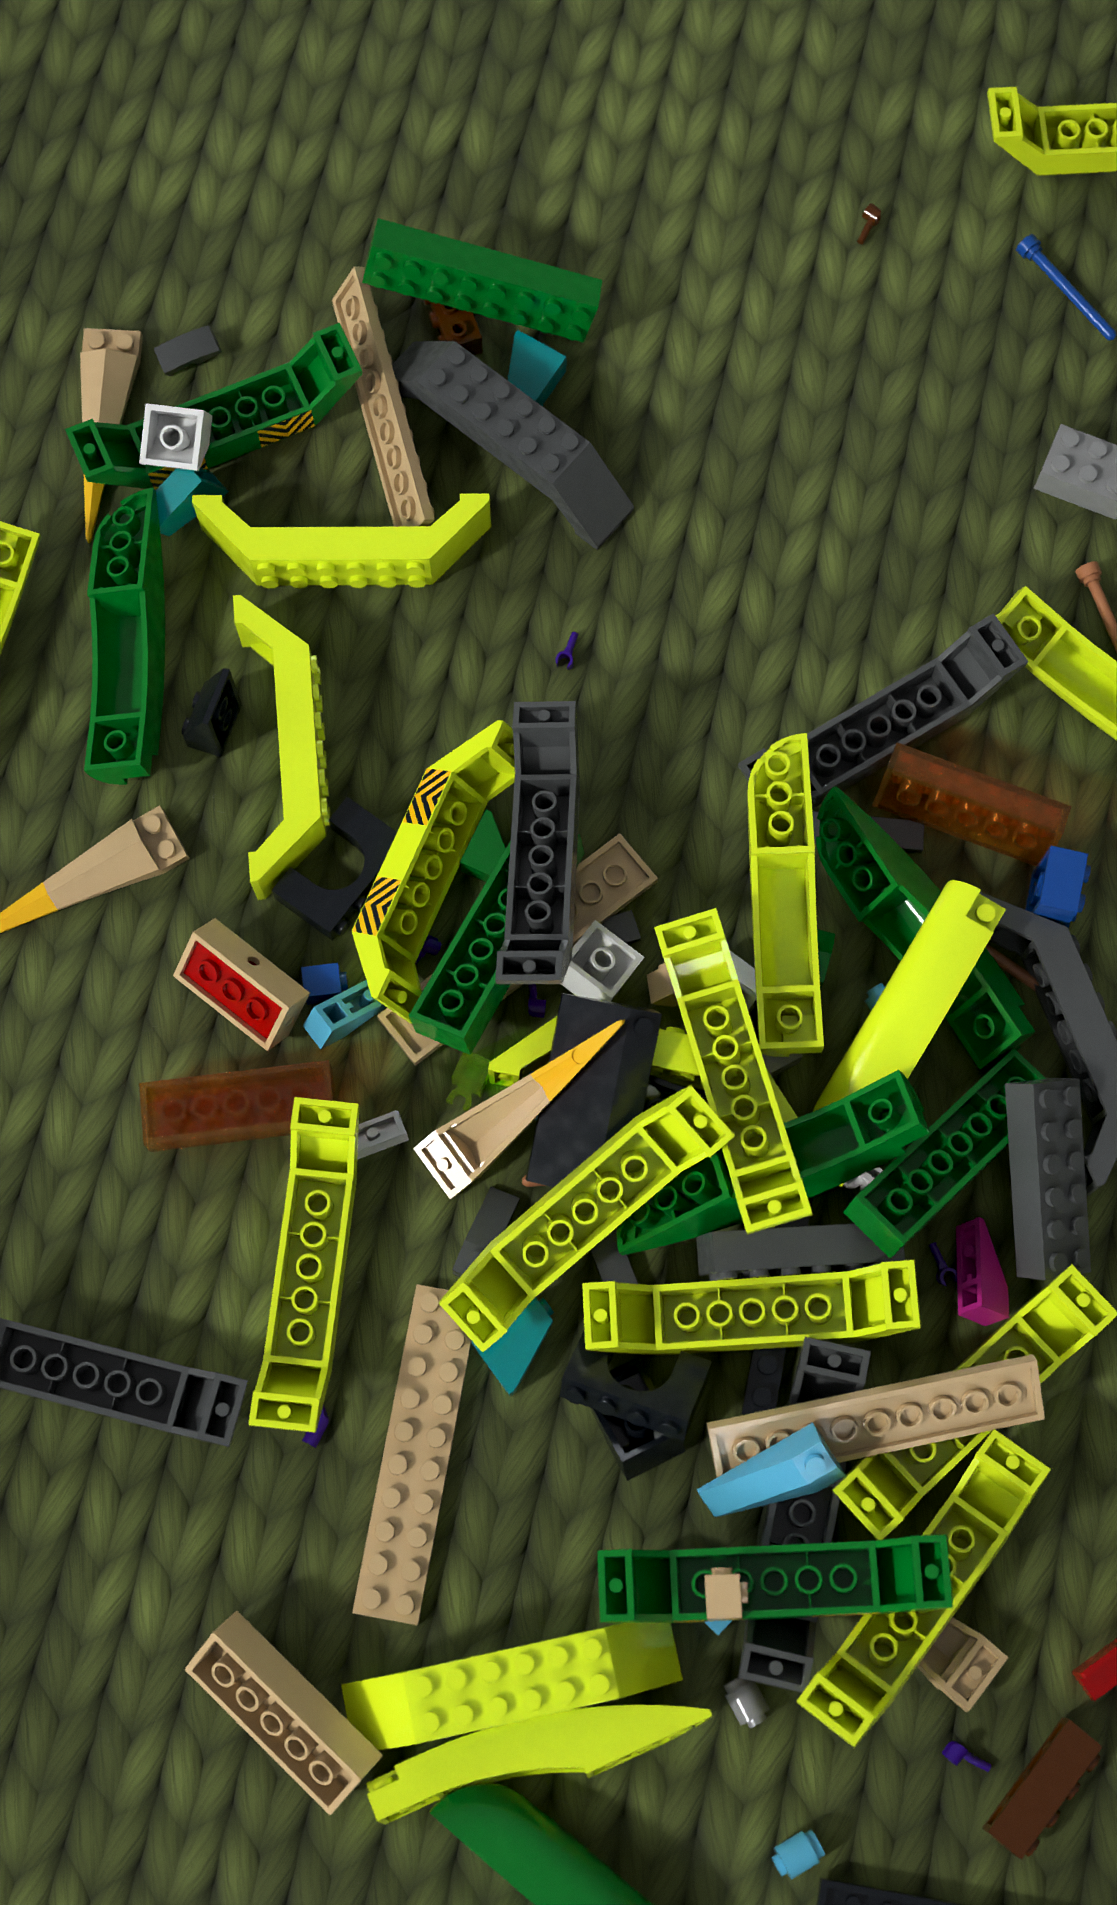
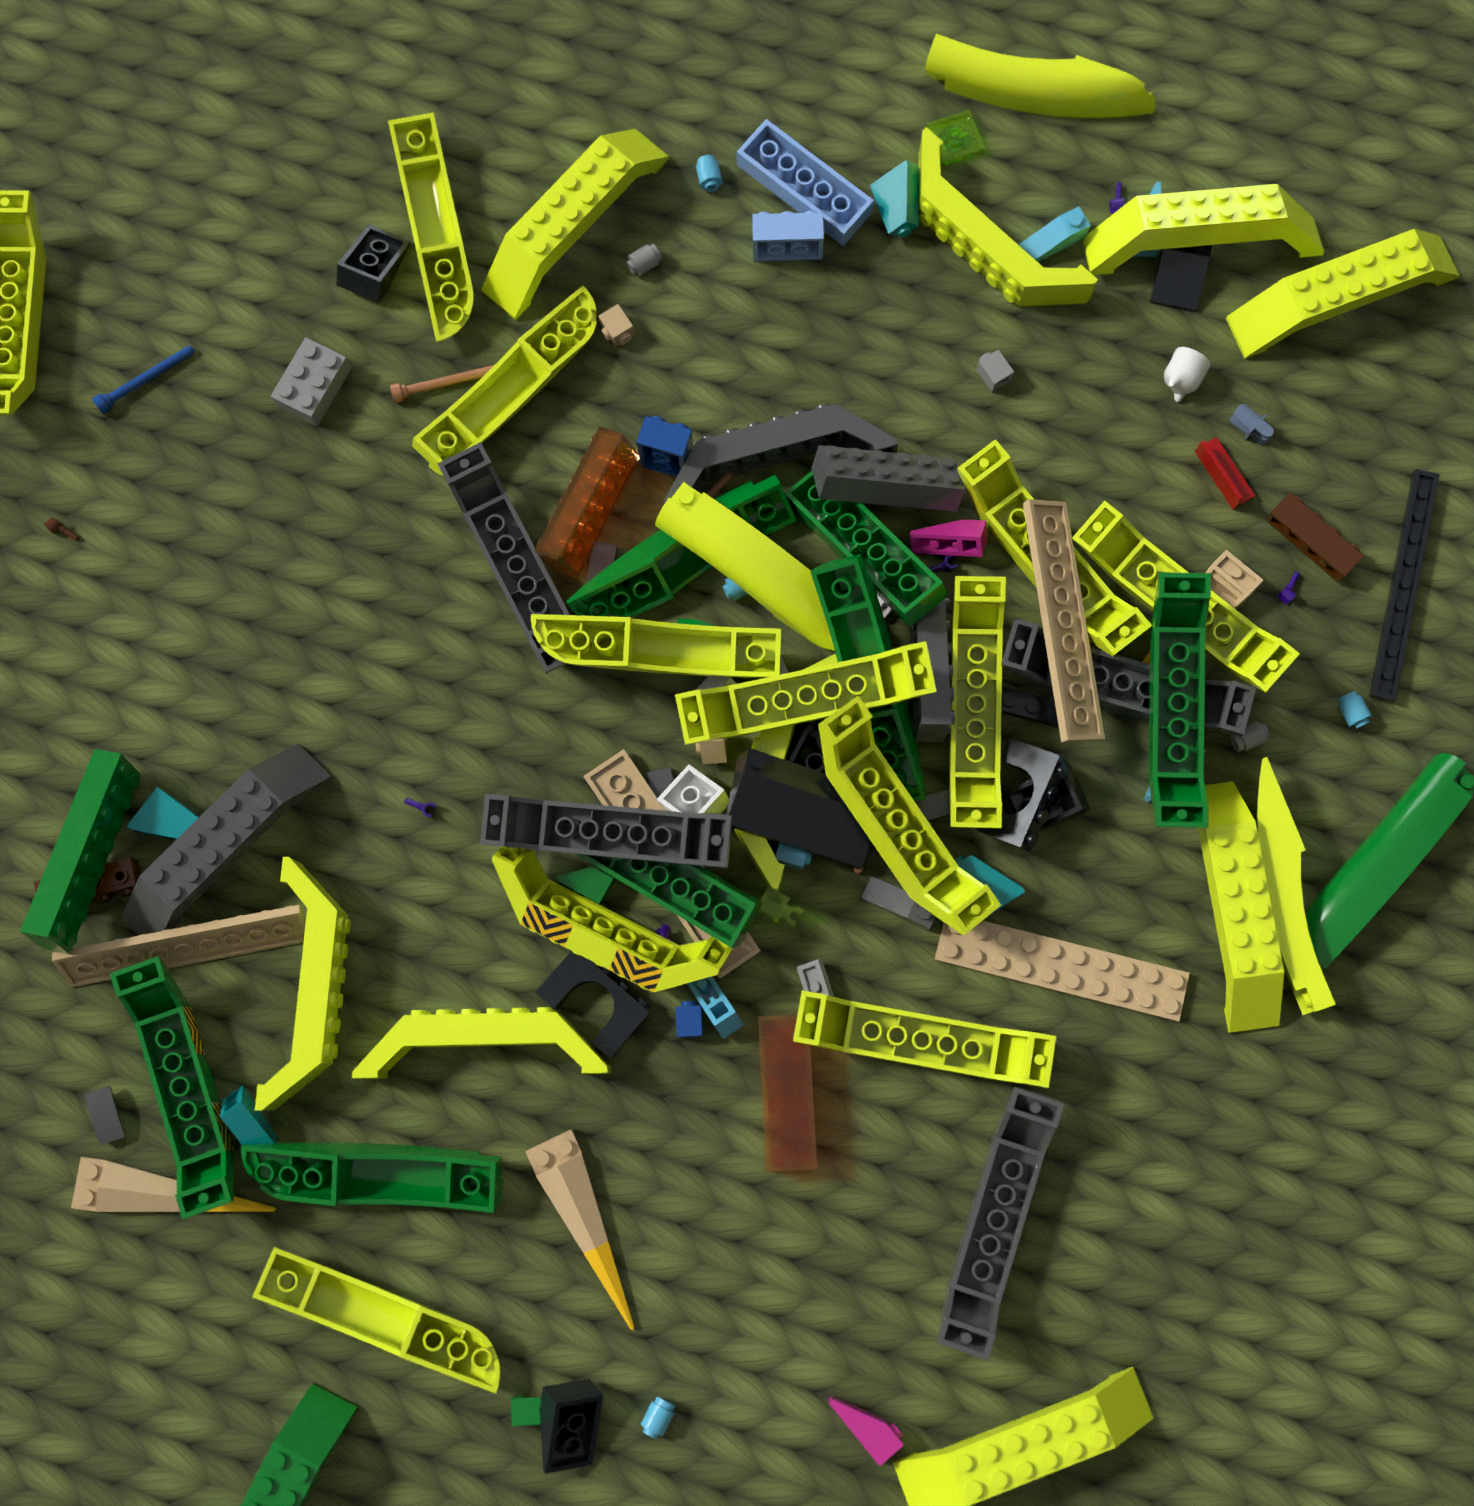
camera: 80 degrees left, 5 degrees up
(175, 437) = (200, 1123): white slope -> none
(213, 714) = (451, 1103): black slope -> none
(241, 984) = (688, 1086): tan brick -> none
(283, 1712) = (1252, 1074): tan brick -> none
(475, 1140) = (826, 904): tan plate -> none
(724, 1594) = (1190, 736): tan brick -> none
(784, 1471) = (1097, 692): medium azure wedge -> none

